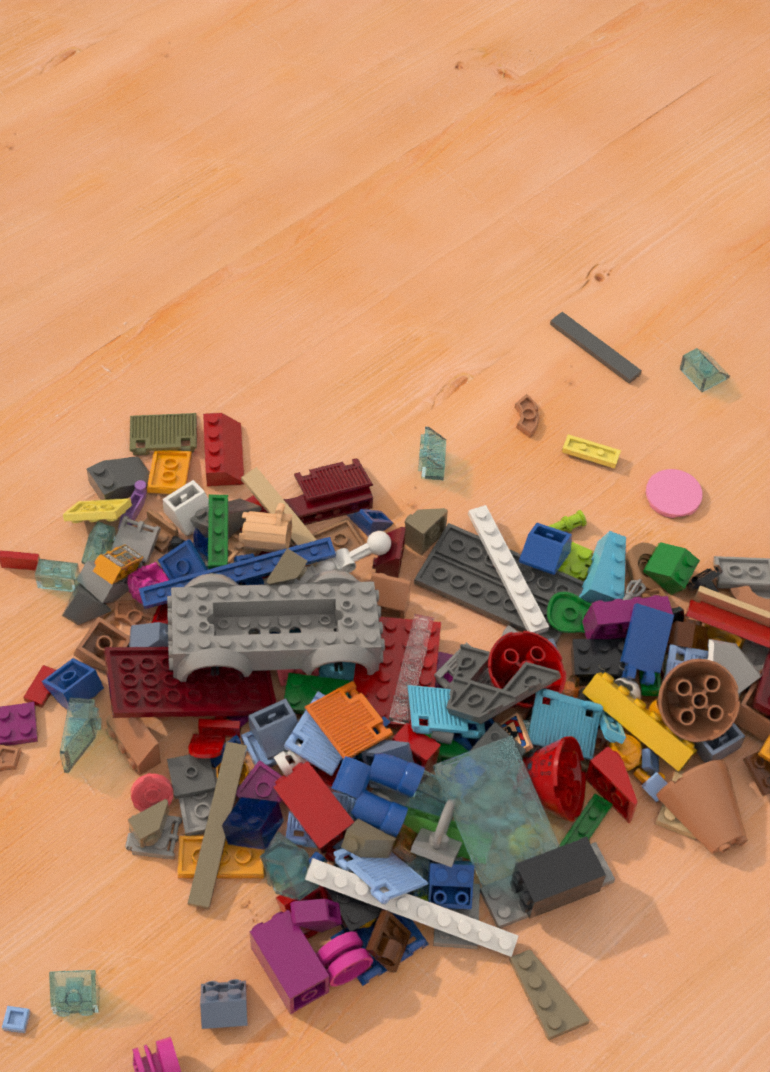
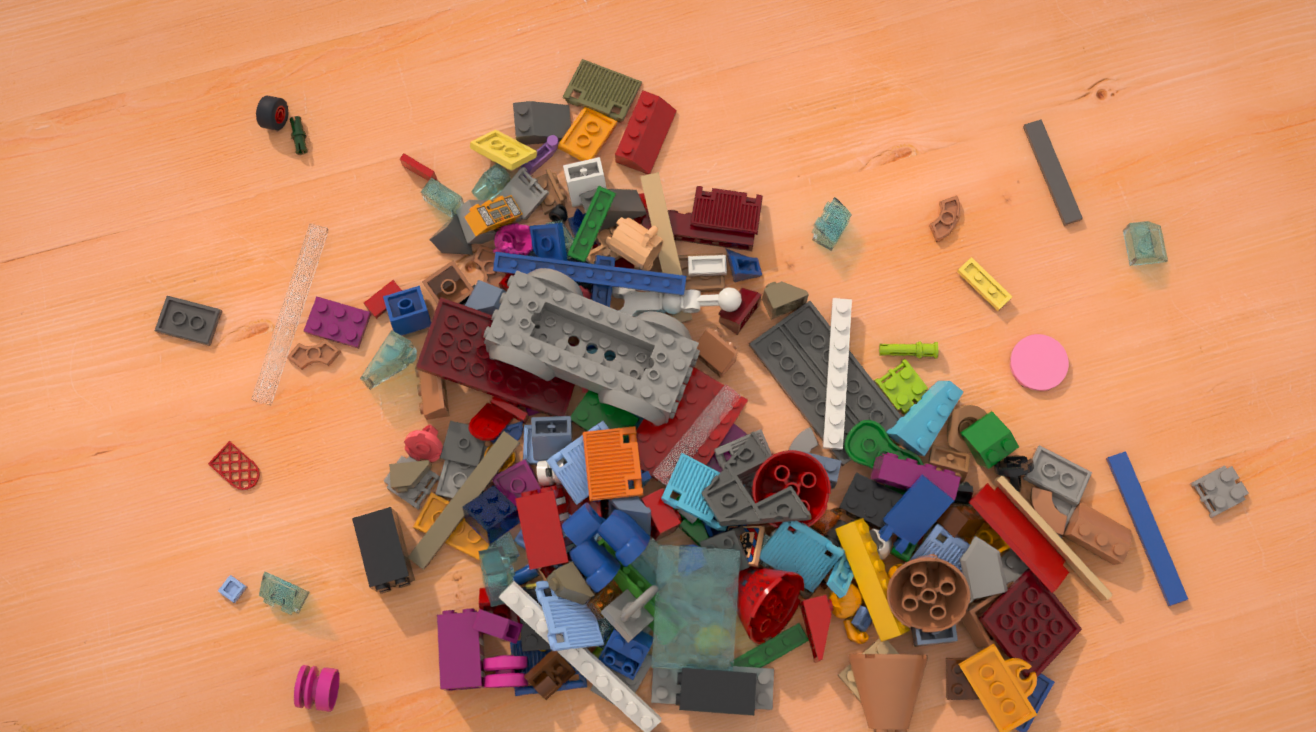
camera: 30 degrees right, 20 degrees up
(160, 904) = (383, 550): none -> black brick
(223, 1004) = (395, 658): sand blue slope -> none
(288, 569) = (627, 296): dark tan slope -> none
(341, 531) = (707, 265): none -> white tile
(546, 548) = (880, 371): blue slope -> none
(629, 595) = (931, 454): light grey piece -> none
(654, 785) = (855, 644): light blue tile -> none

